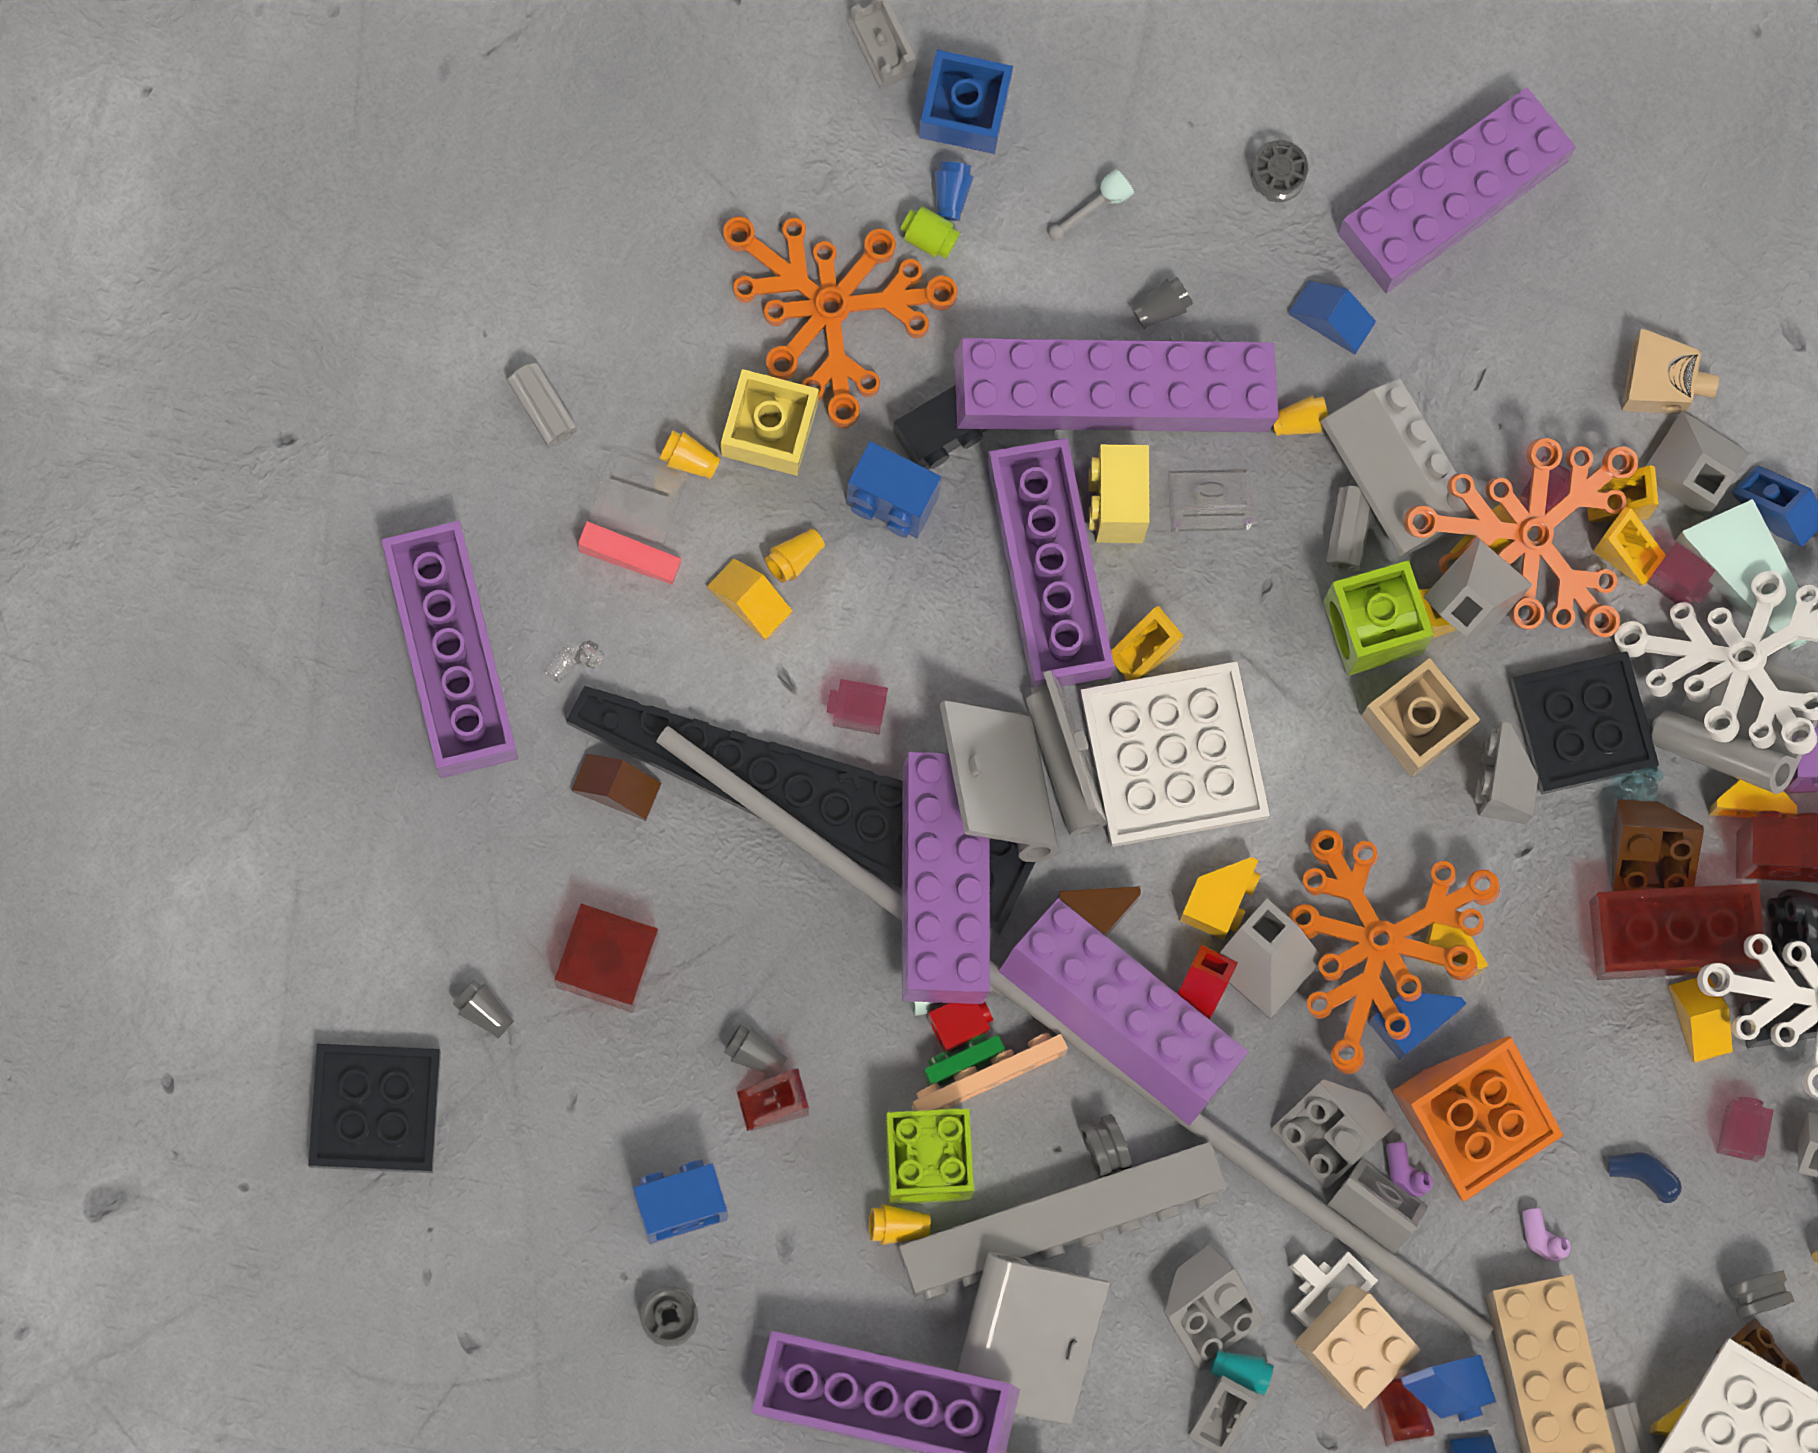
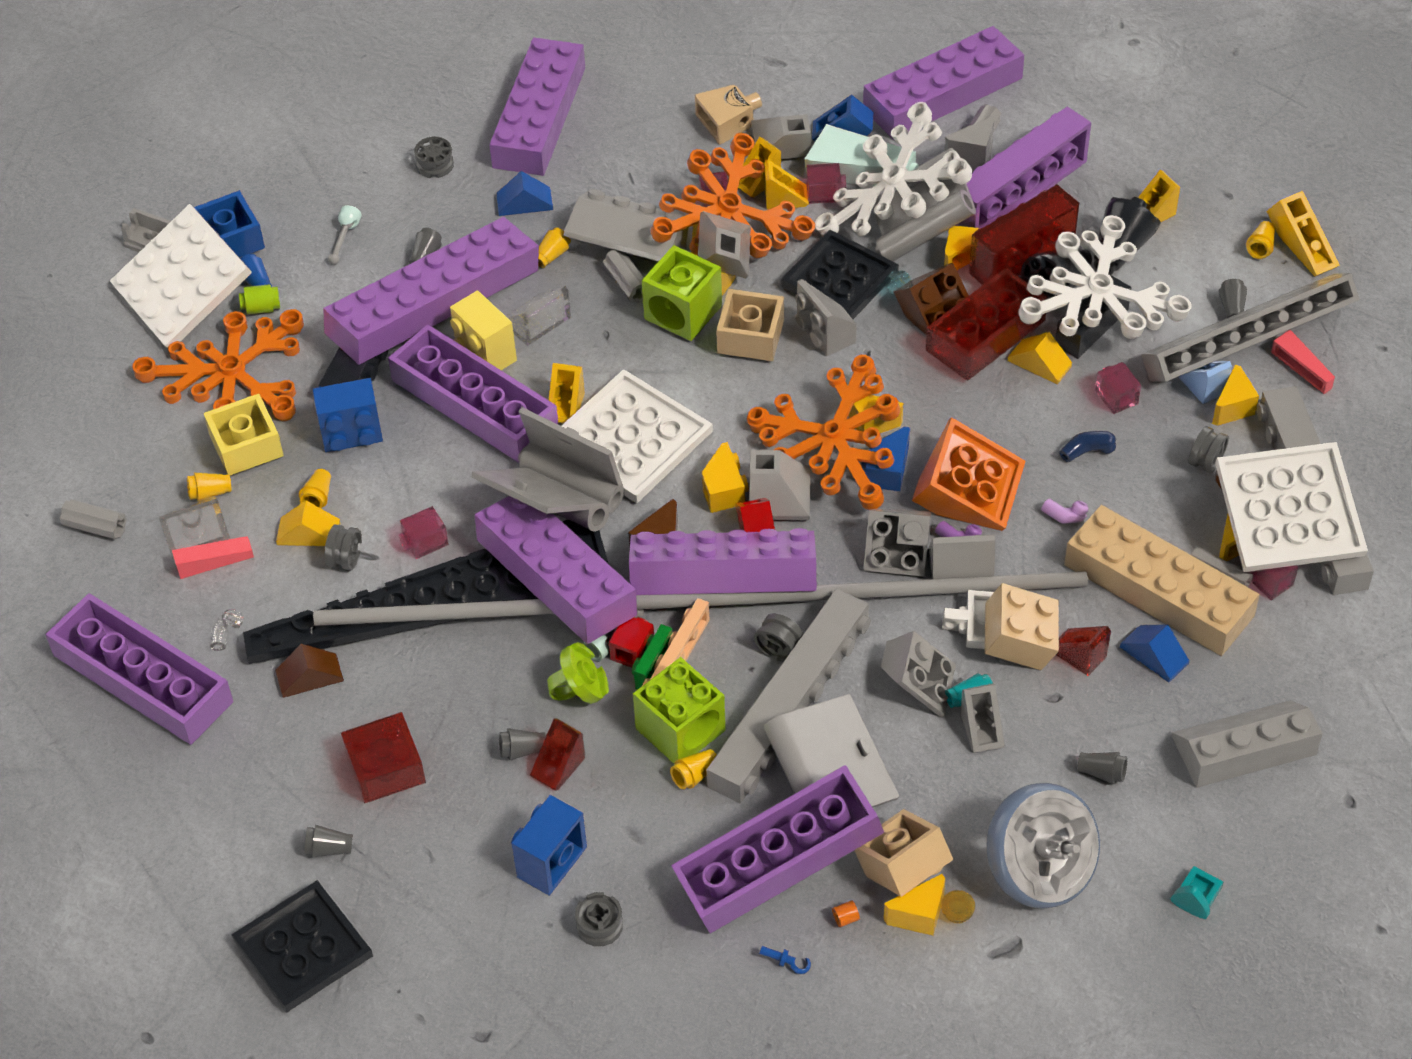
camera: 30 degrees left, 25 degrees down
(761, 660) = (342, 547): none -> dark grey wheel
(863, 138) = (180, 276): none -> white plate
(870, 1027) = (578, 675): none -> lime tile
(1453, 1388) = (1095, 607): blue slope -> none

